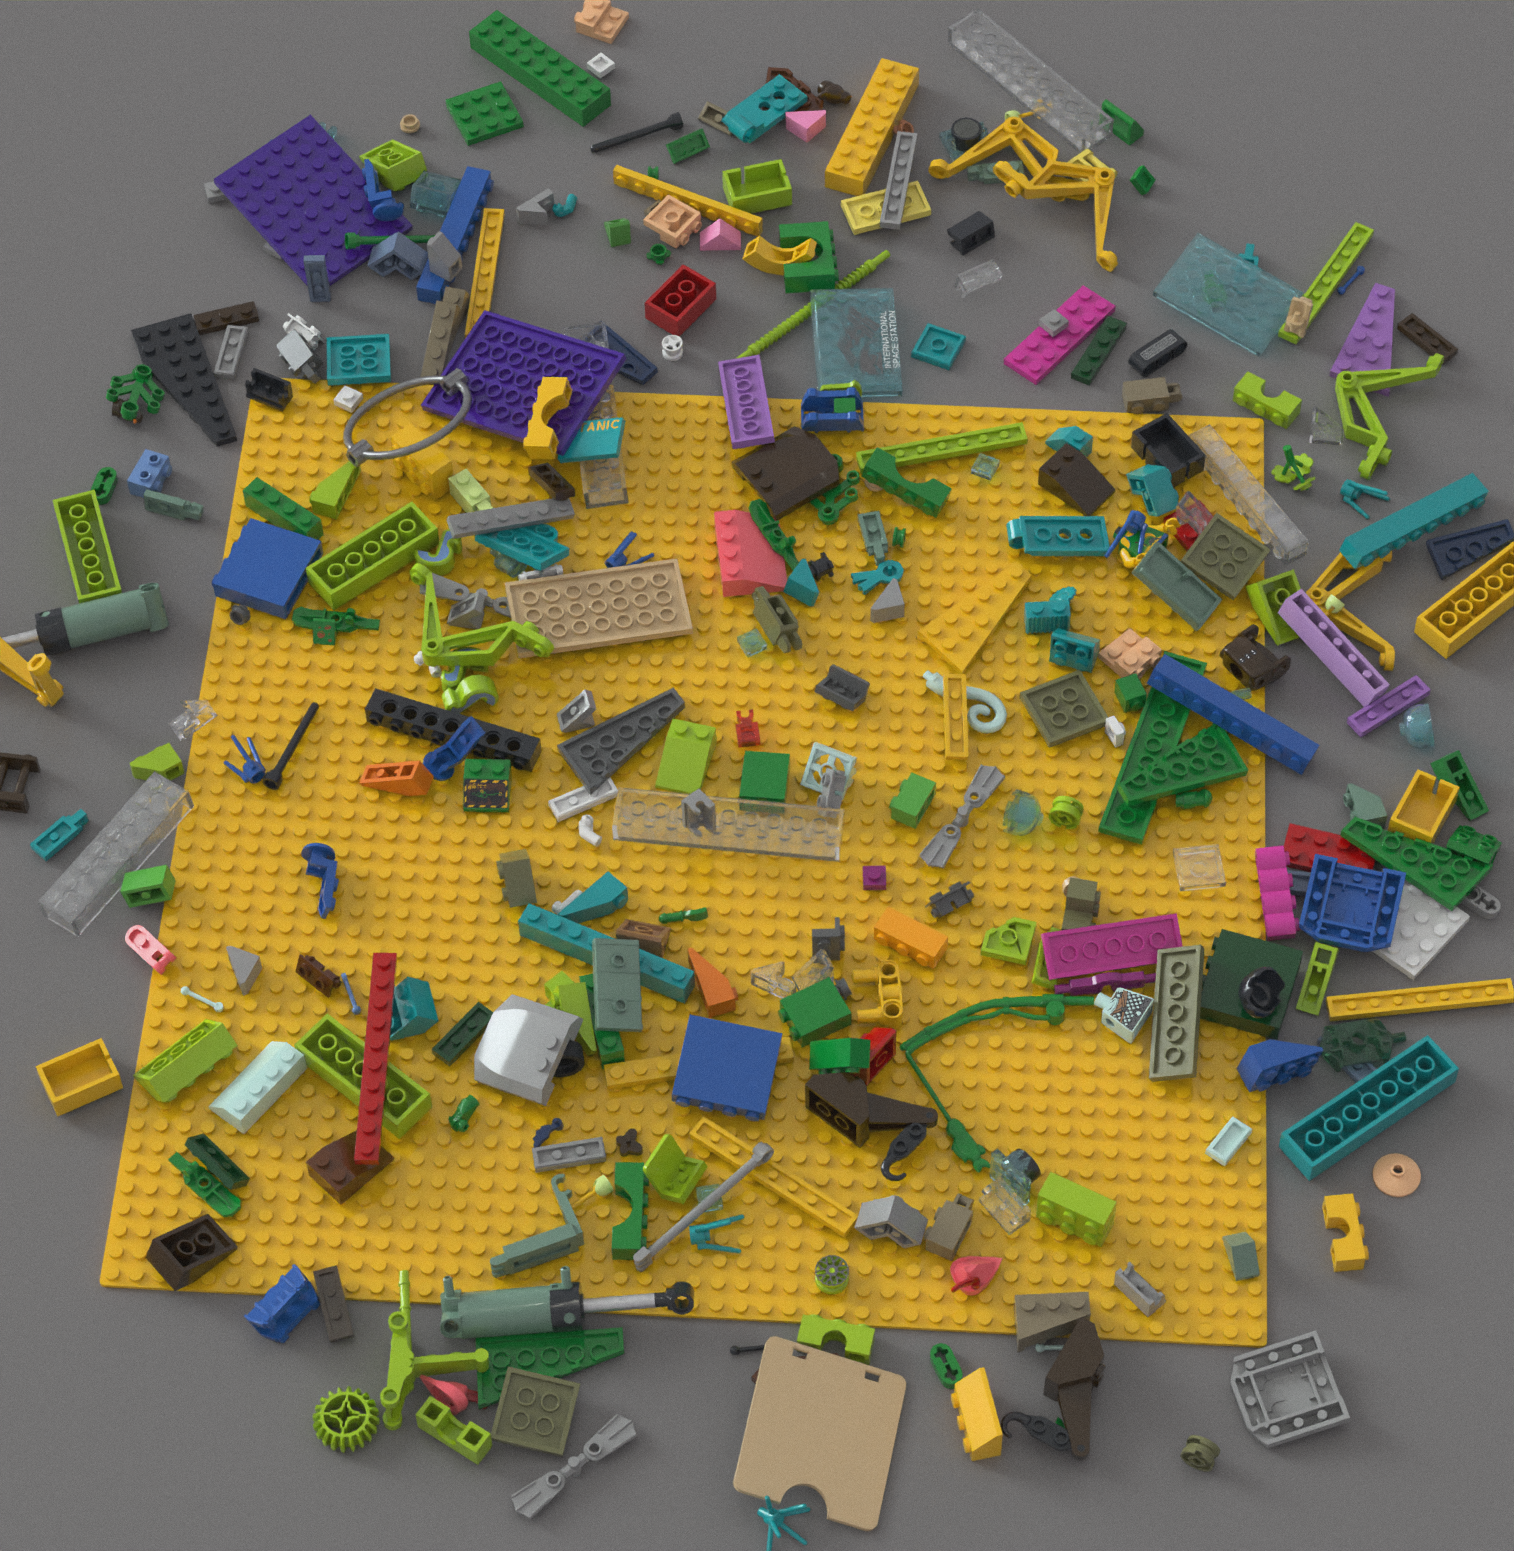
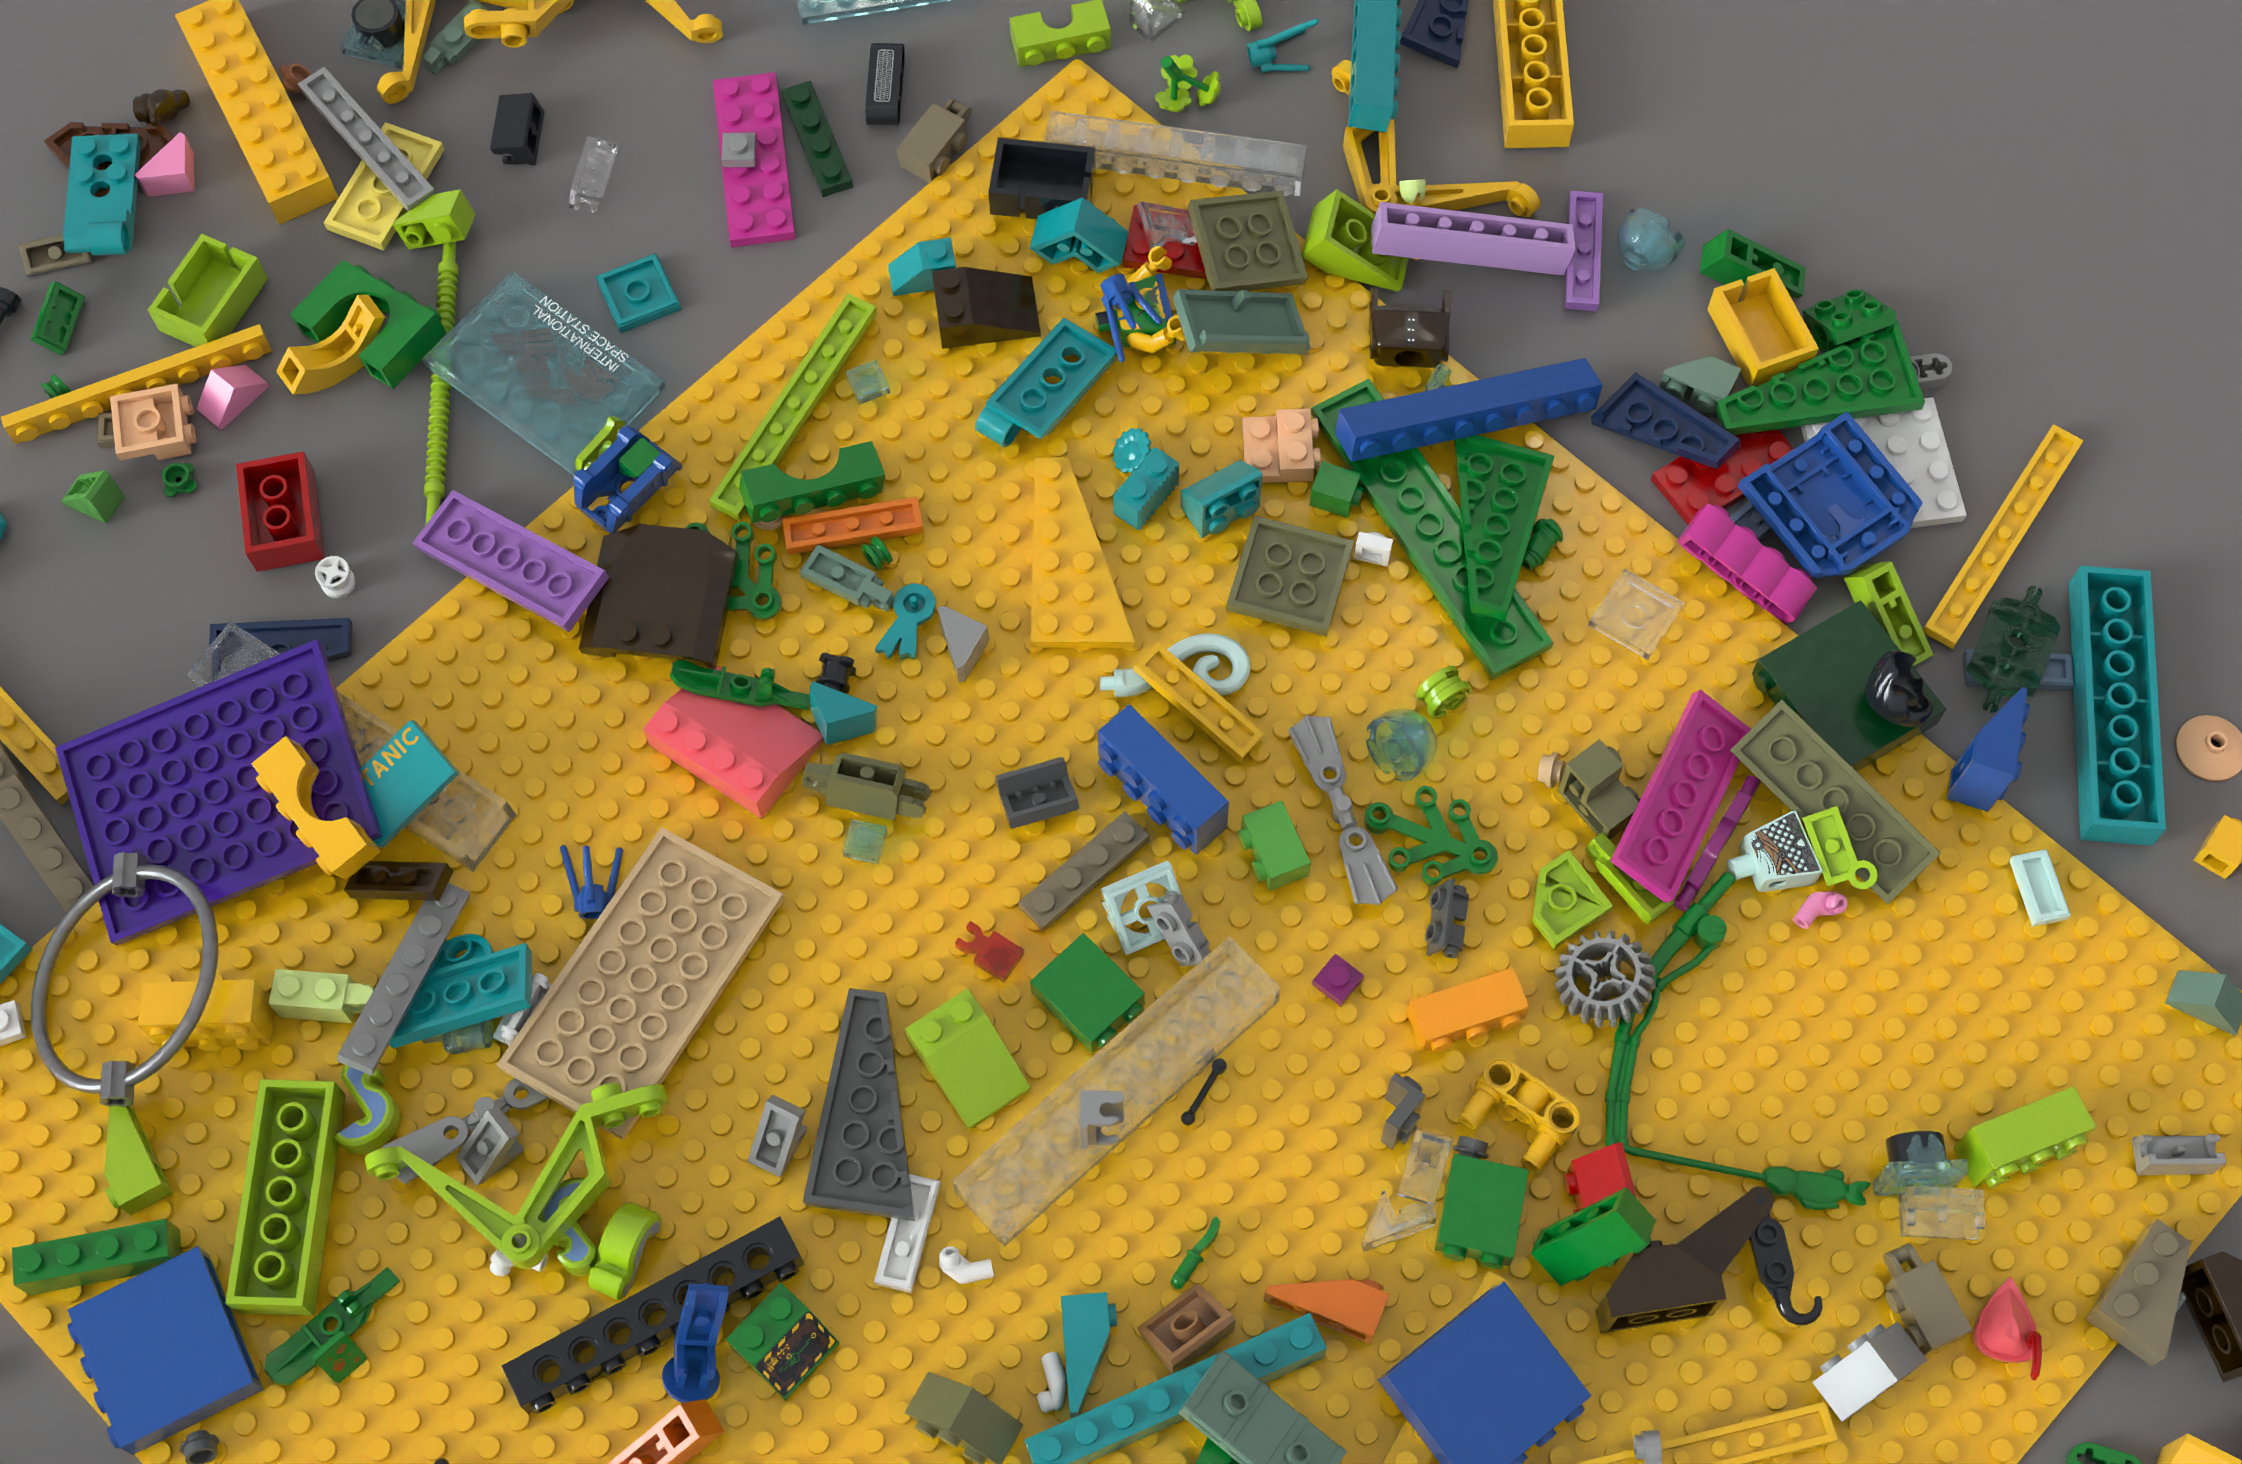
camera: 50 degrees left, 10 degrees up
(783, 861) = (1218, 1067): none -> black hinge
(837, 738) = (1084, 871): none -> dark tan plate
(887, 239) = (436, 220): none -> lime slope
(896, 729) = (1162, 780): none -> blue brick
(904, 517) = (852, 525): none -> orange plate
(982, 981) = (1629, 993): none -> light grey gear
(986, 865) = (1435, 840): none -> green plant
(1118, 1049) = (1820, 905): none -> bright pink arm
(1149, 1029) = (1835, 849): none -> lime hinge
(1321, 805) = (1661, 420): none -> dark blue wing

